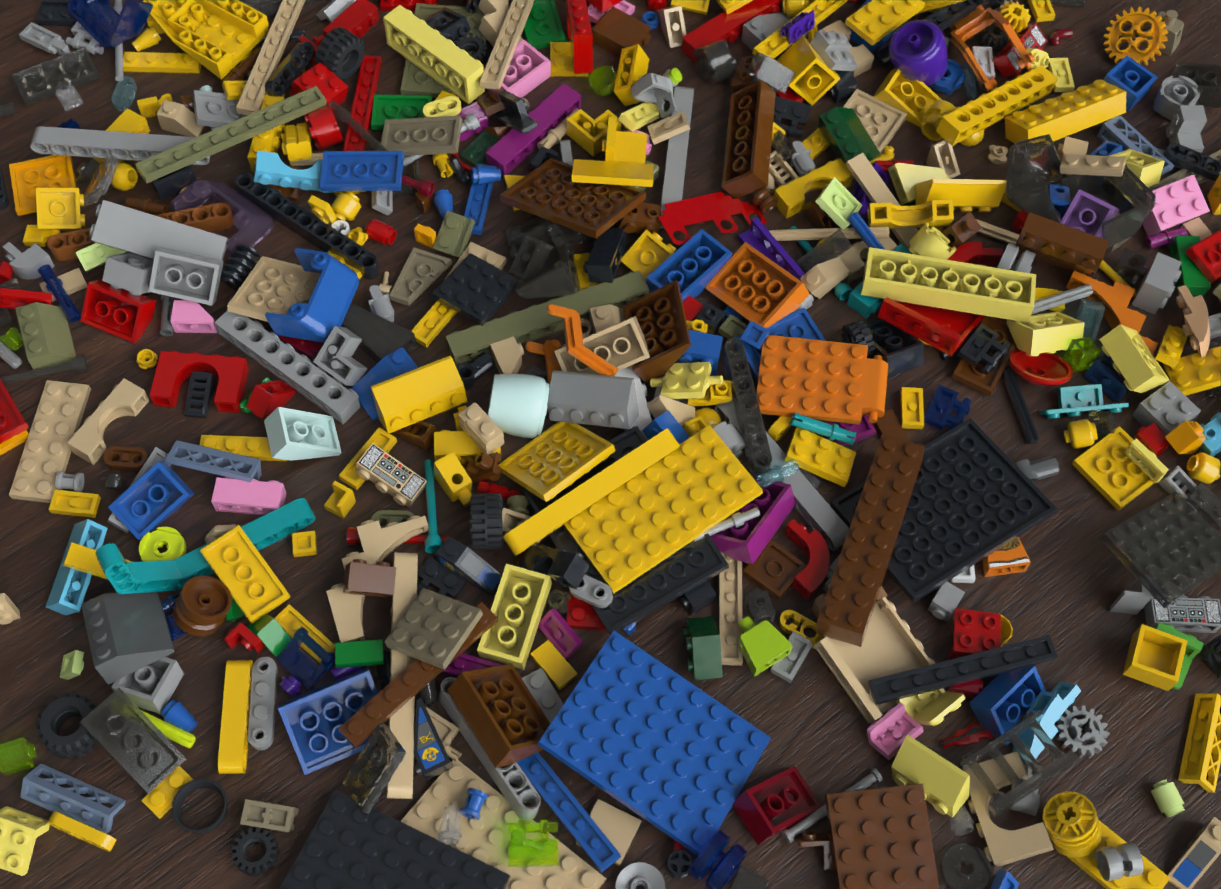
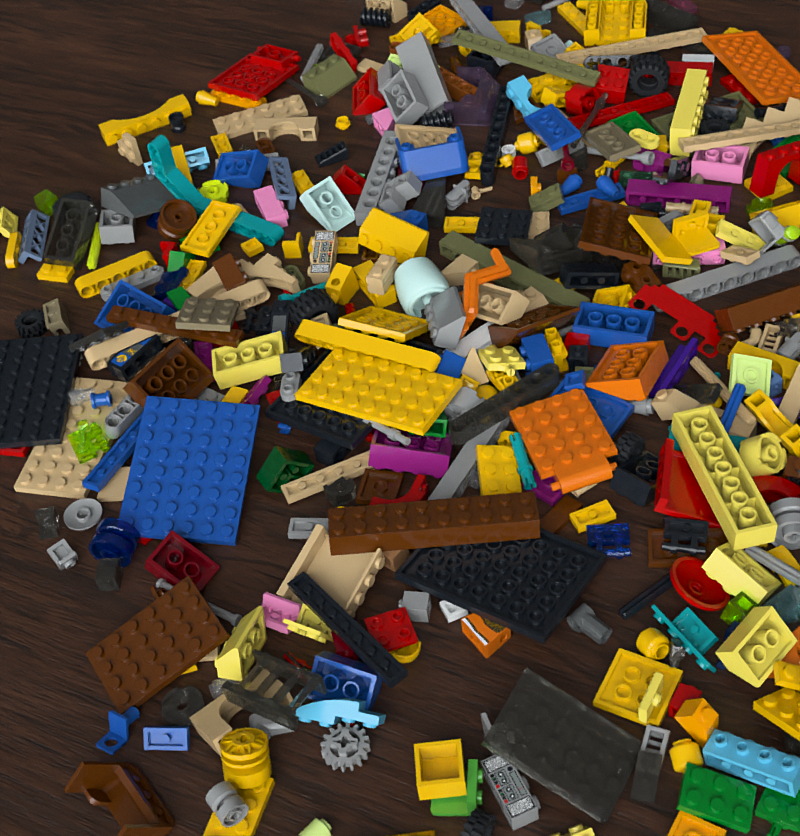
camera: 75 degrees right, 15 degrees down
(27, 263) = (377, 46): light grey brick -> none
(47, 274) = (365, 61): clear blue pin -> none
(69, 481) = (232, 135): light grey bush -> none
(176, 367) = (354, 157): red arch -> none
(179, 716) = (104, 251): blue cone -> none
(188, 788) = (49, 278): black tyre -> none
(291, 685) = (148, 286): dark purple plate -> none
(322, 210) = (507, 127): yellow plate -> none
(417, 275) = (500, 198): dark tan wing -> none
(475, 369) = (439, 259): black piece -> none
(483, 467) = (360, 296): reddish brown hips -> none
(762, 645) = (301, 499): lime torso -> none
(777, 473) = (457, 446): clear light blue axle -> none
(1166, 409) = (731, 701): light grey brick -> none

